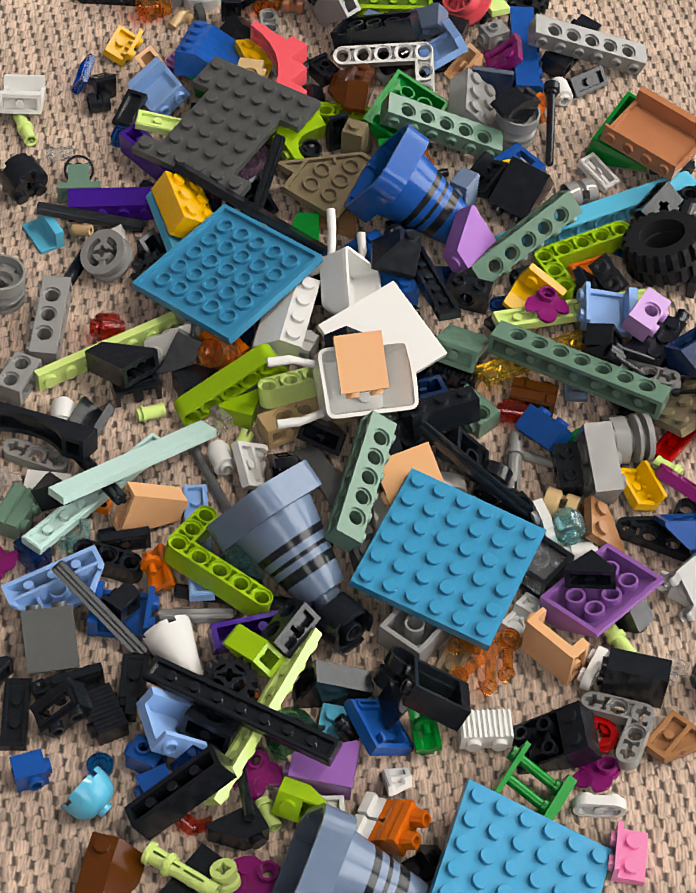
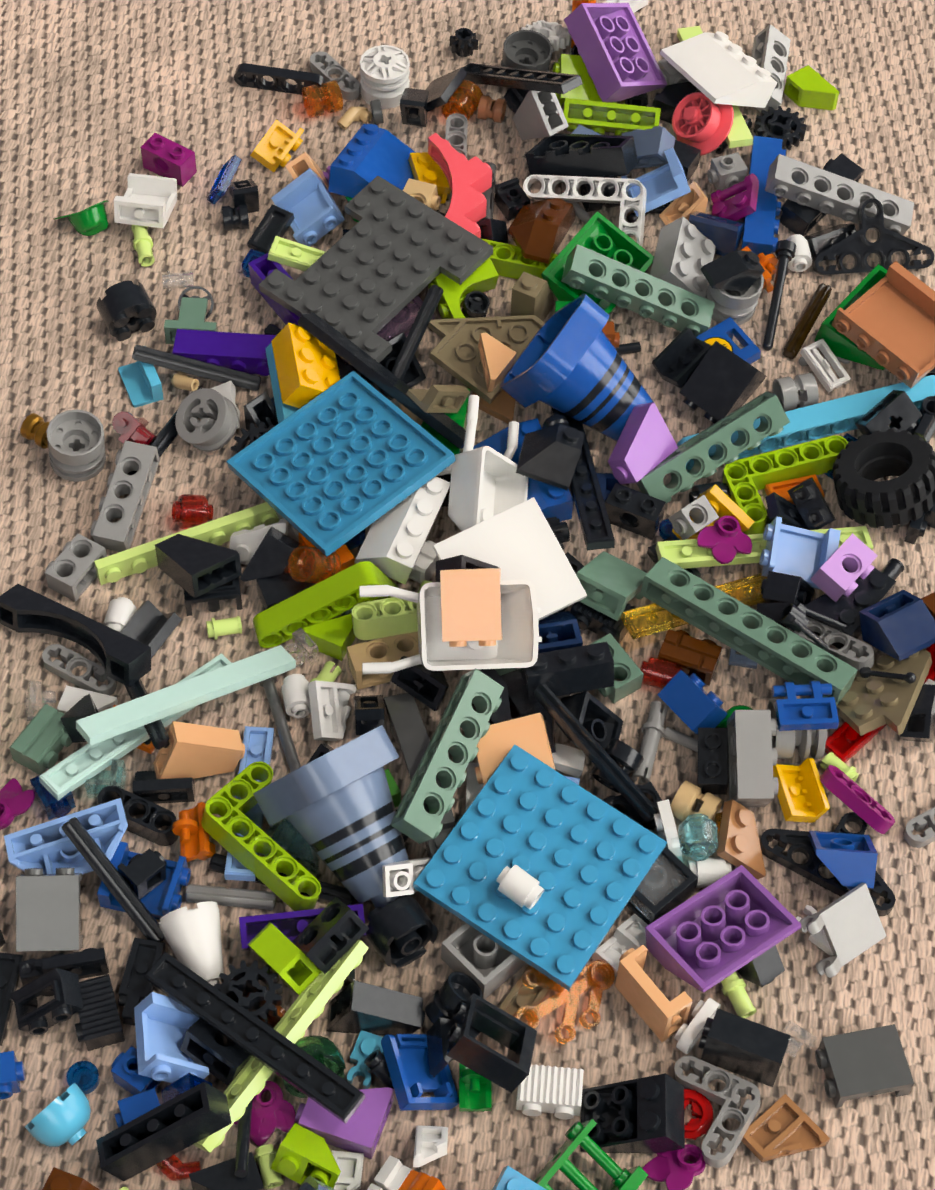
camera: 10 degrees right, 5 degrees up
(34, 61) = (168, 159): none -> magenta brick
(44, 266) = (132, 428): none -> hips
(236, 27) = (416, 134): black slope -> none
(298, 219) = (440, 398): none -> dark tan panel
(334, 129) = (507, 279): black slope -> none
(336, 185) = (495, 360): none -> light nougat slope
(339, 577) = (401, 875): none -> white slope
(437, 571) = (519, 886): none -> white brick
(466, 185) = (653, 373): sand blue brick -> none
(518, 290) = (701, 513): none -> light grey brick
(577, 141) = (807, 321): none -> dark brown axle
(590, 572) = (710, 906): black slope -> none
(609, 82) = (860, 248): none -> black beam
(642, 421) = (805, 712): none -> blue plate

